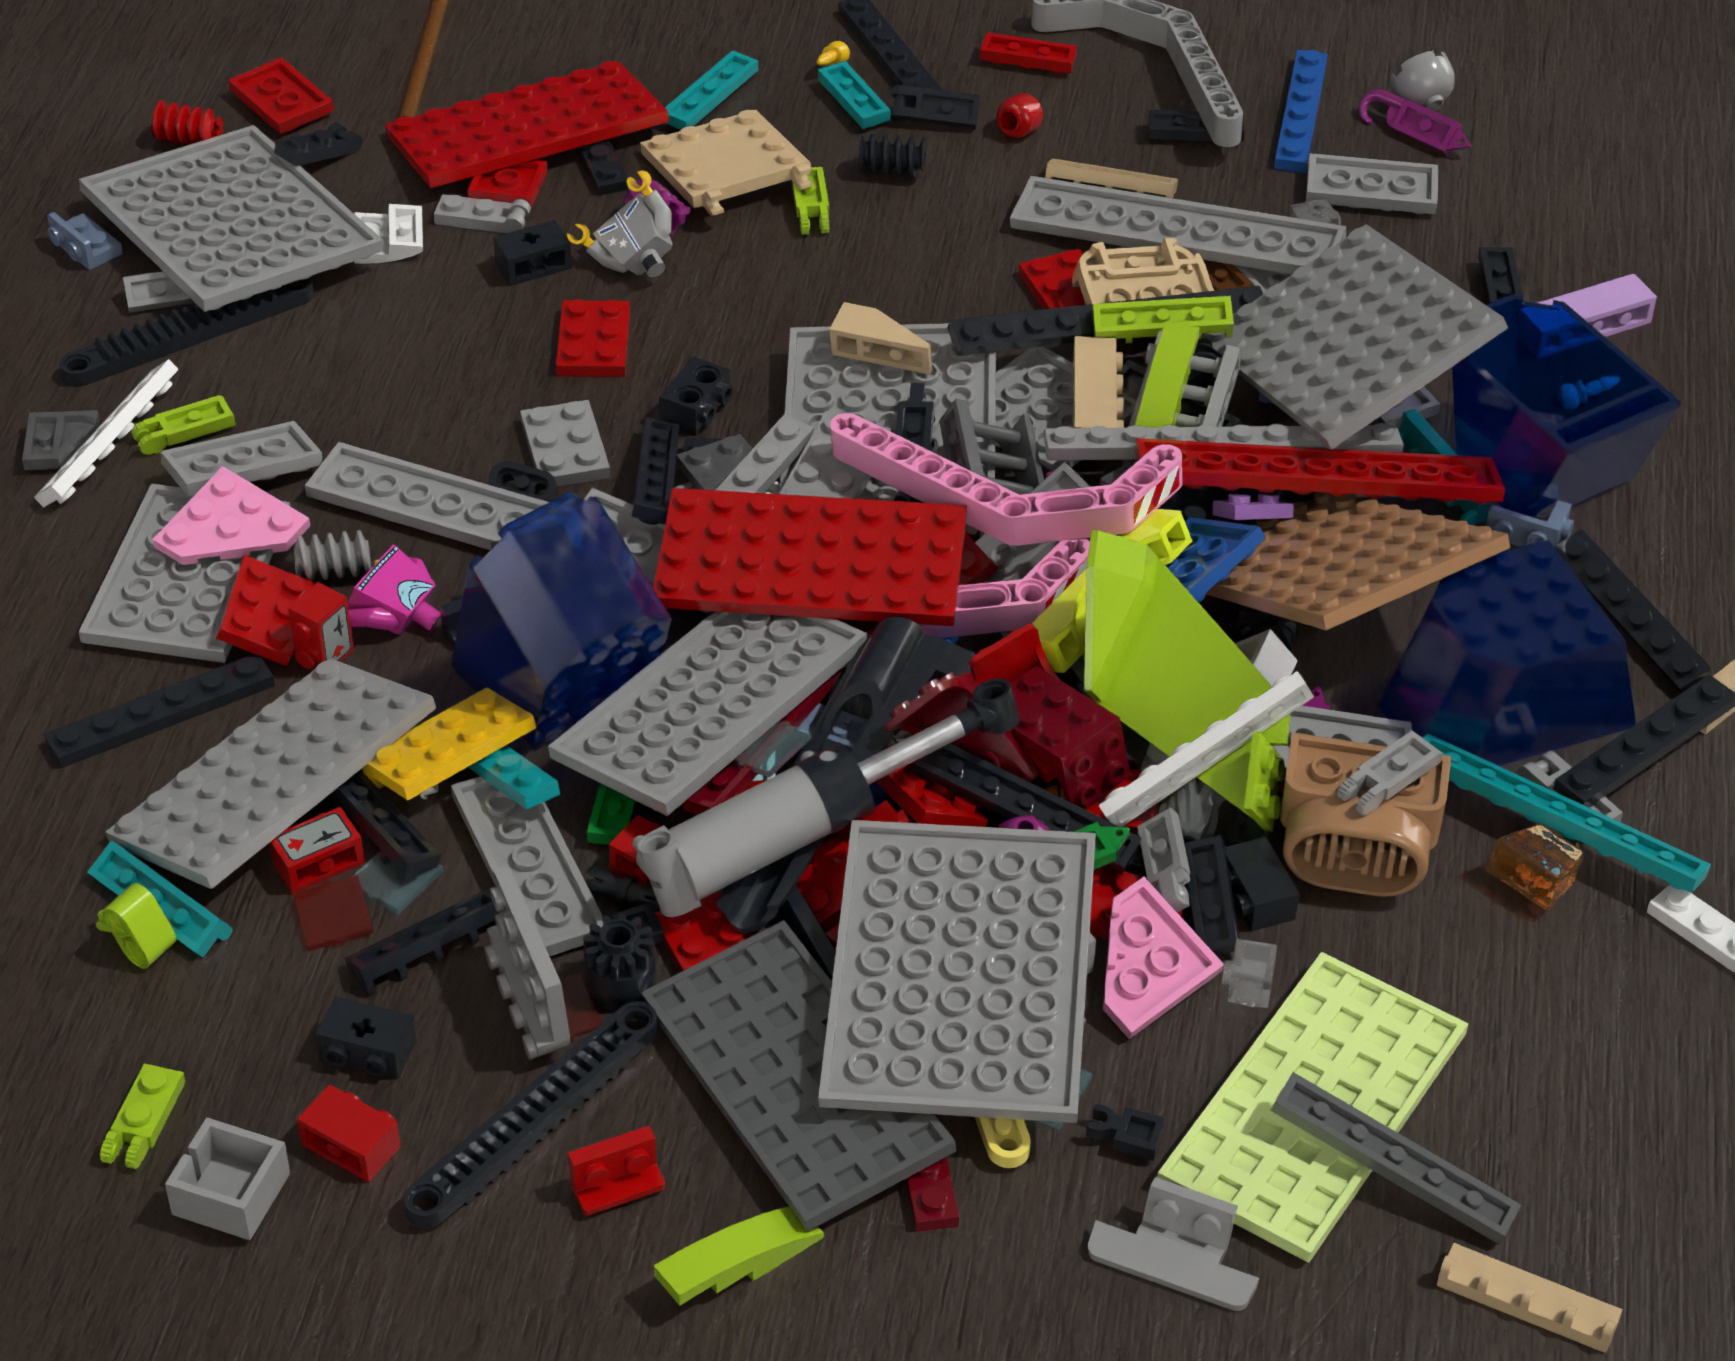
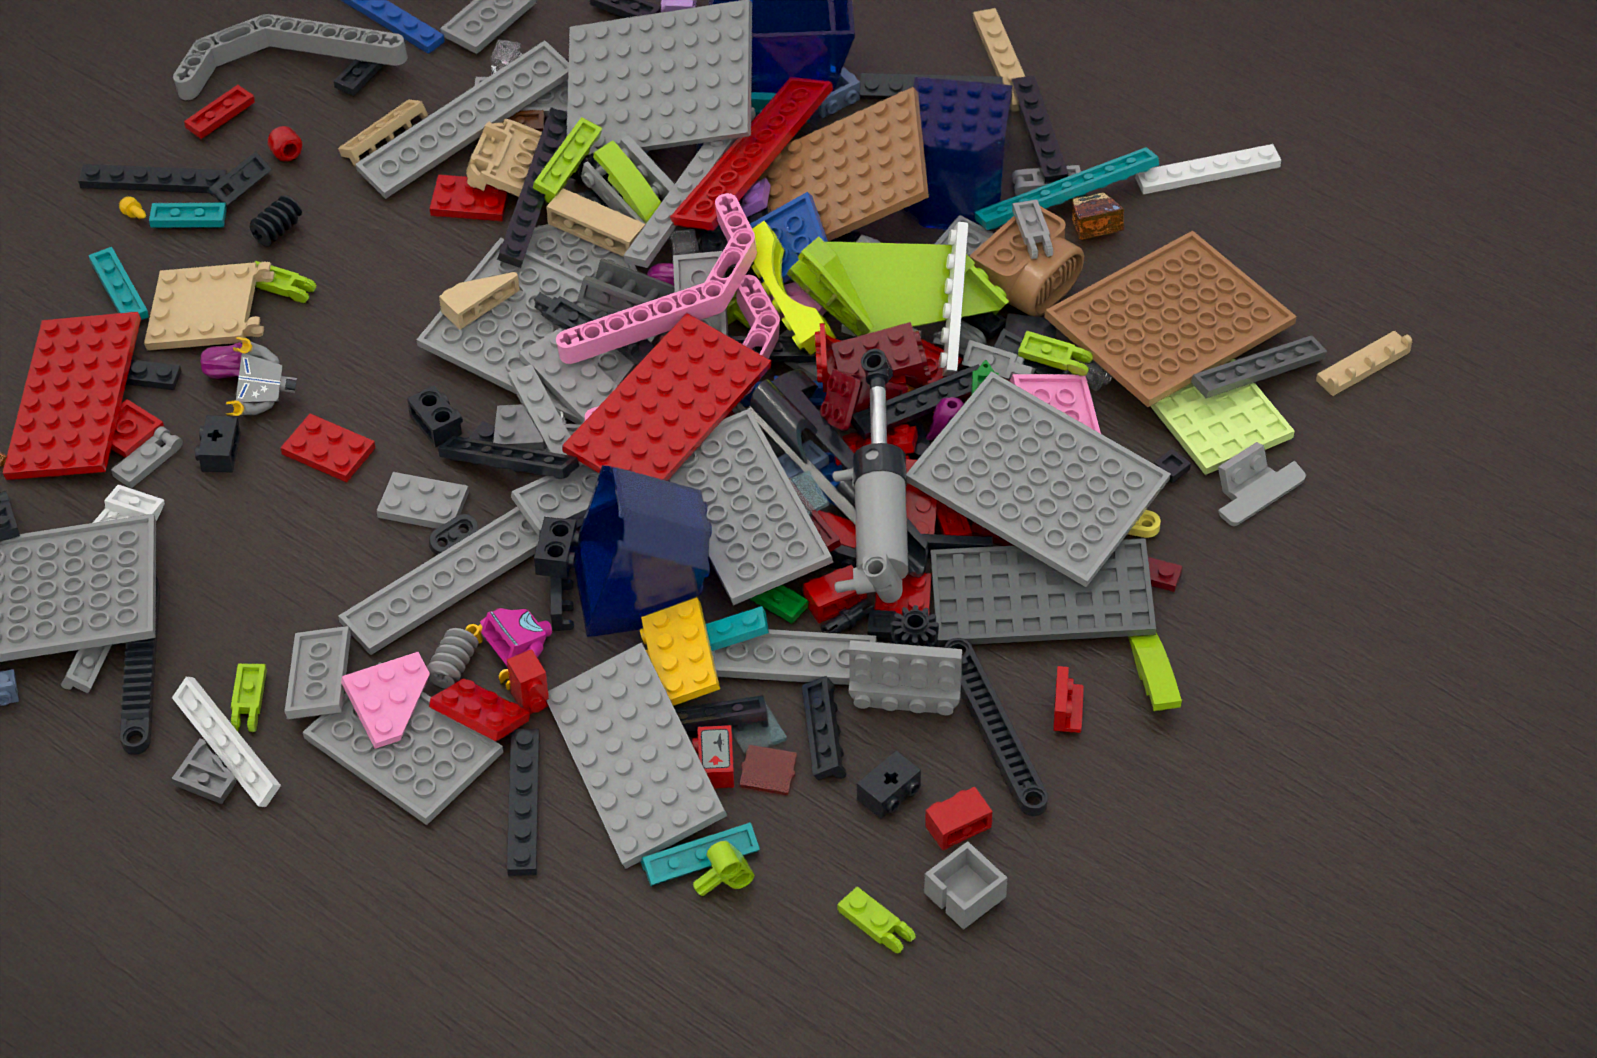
camera: 60 degrees left, 5 degrees up
(1219, 905) = (1054, 353): none -> lime hinge
(1403, 1017) = (1170, 317): none -> medium nougat plate

